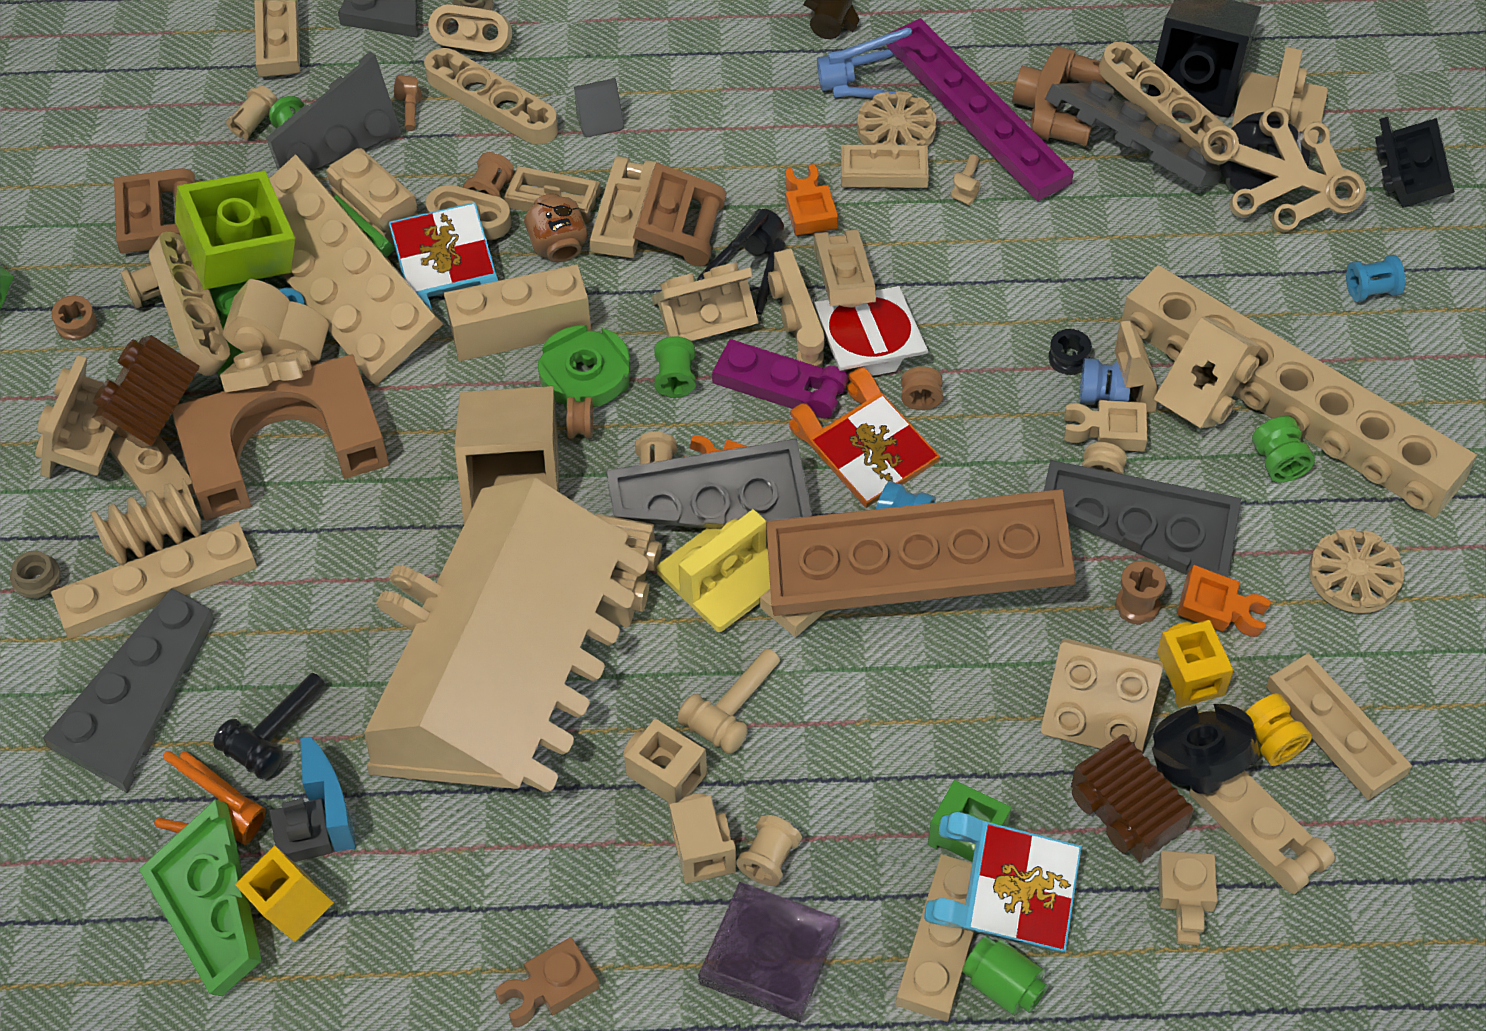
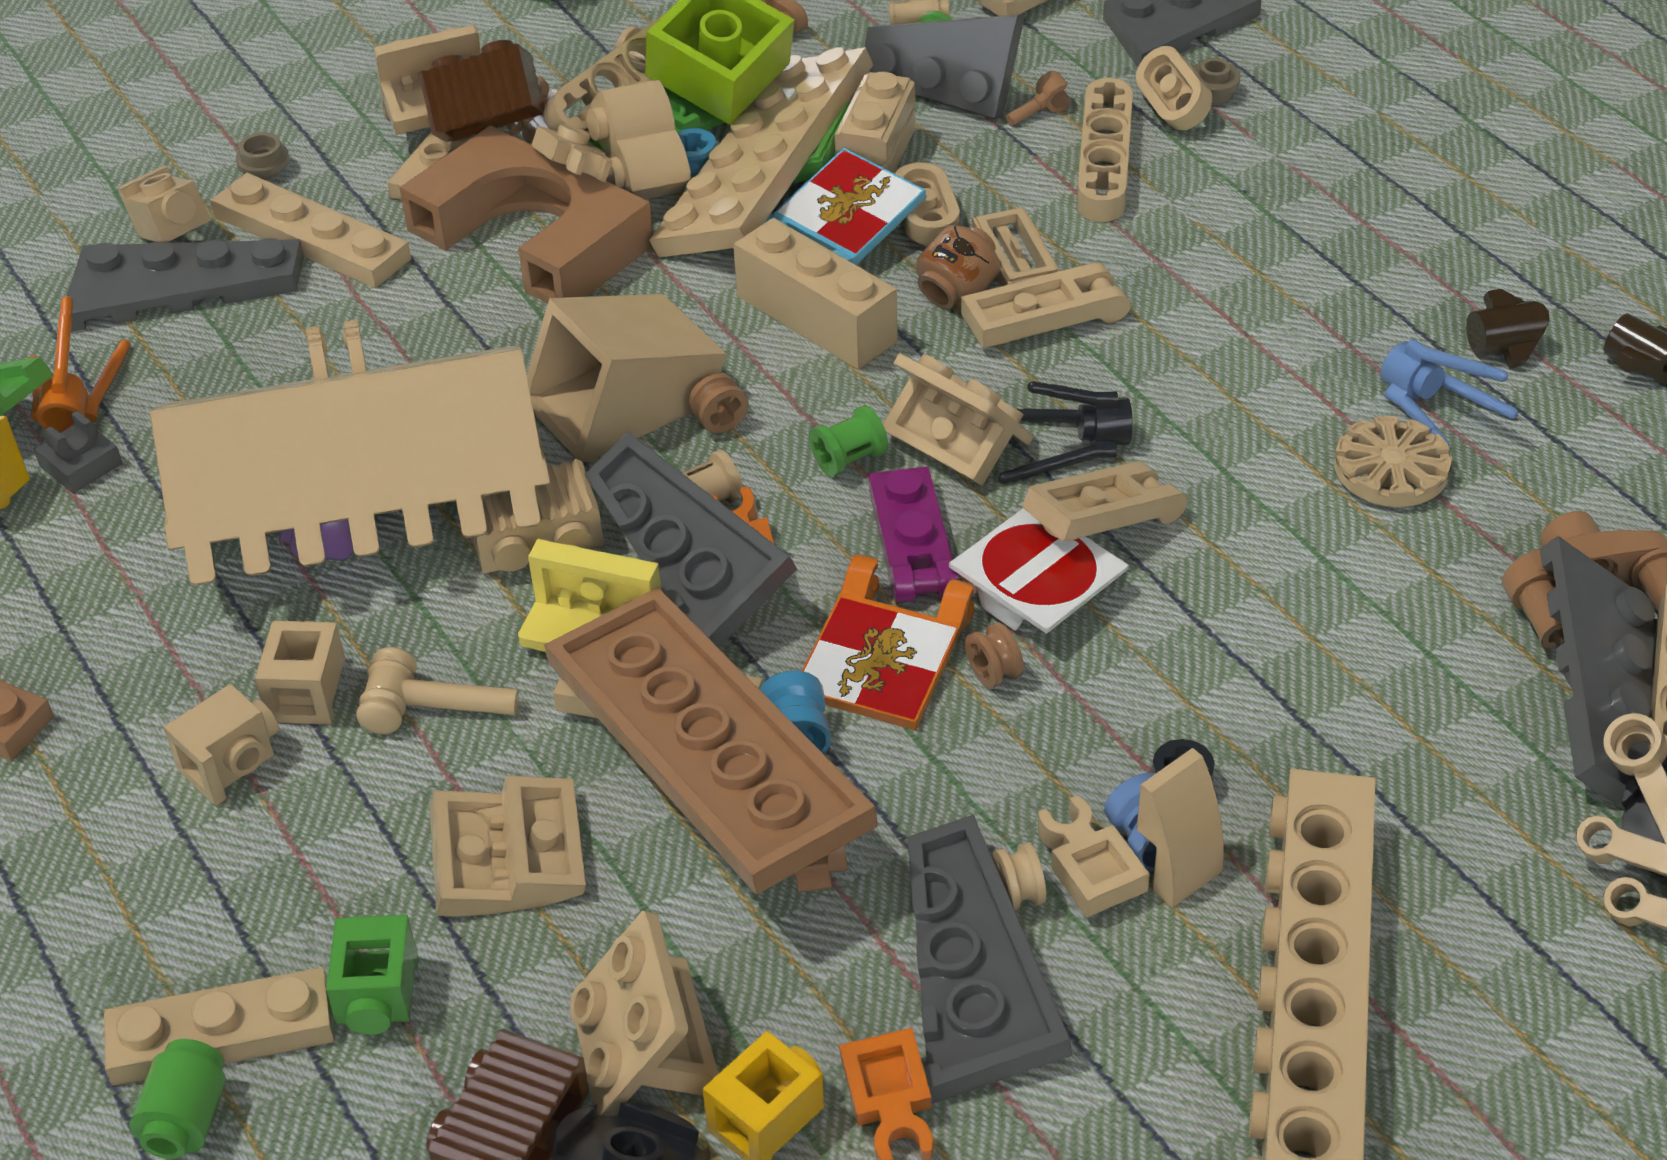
camera: 60 degrees right, 10 degrees down
(55, 660) = (163, 205): none -> tan brick
(70, 307) = (573, 38): medium nougat bush -> none
(148, 523) = (354, 183): tan piece -> none
(254, 747) = (156, 369): black piece -> none
(321, 782) = (116, 452): dark azure slope -> none
(487, 178) = (994, 187): medium nougat bush -> none
(575, 345) = (766, 373): bright green plate -> none
(598, 108) = (1162, 223): dark grey slope -> none
(666, 210) = (1064, 328): medium nougat plate -> none
(769, 850) = (240, 808): tan bush -> none
(769, 951) = (109, 870): clear purple plate -> none
(797, 308) = (1004, 496): tan plate -> none
(808, 204) = (1186, 444): orange plate -> none
(884, 166) = (1312, 477): tan plate -> none
(897, 714) = (506, 847): none -> tan slope
(966, 187) = (1356, 561): tan hand -> none
(982, 111) = (1487, 521): magenta plate -> none
(1016, 887) = (302, 1049): flag -> none
(1141, 587) = (828, 999): medium nougat bush -> none
(1187, 385) = (1234, 901): tan brick -> none
(1284, 452) = (1198, 1059): bright green wheel -> none
(1390, 274) = (1625, 1069): dark azure bush -> none

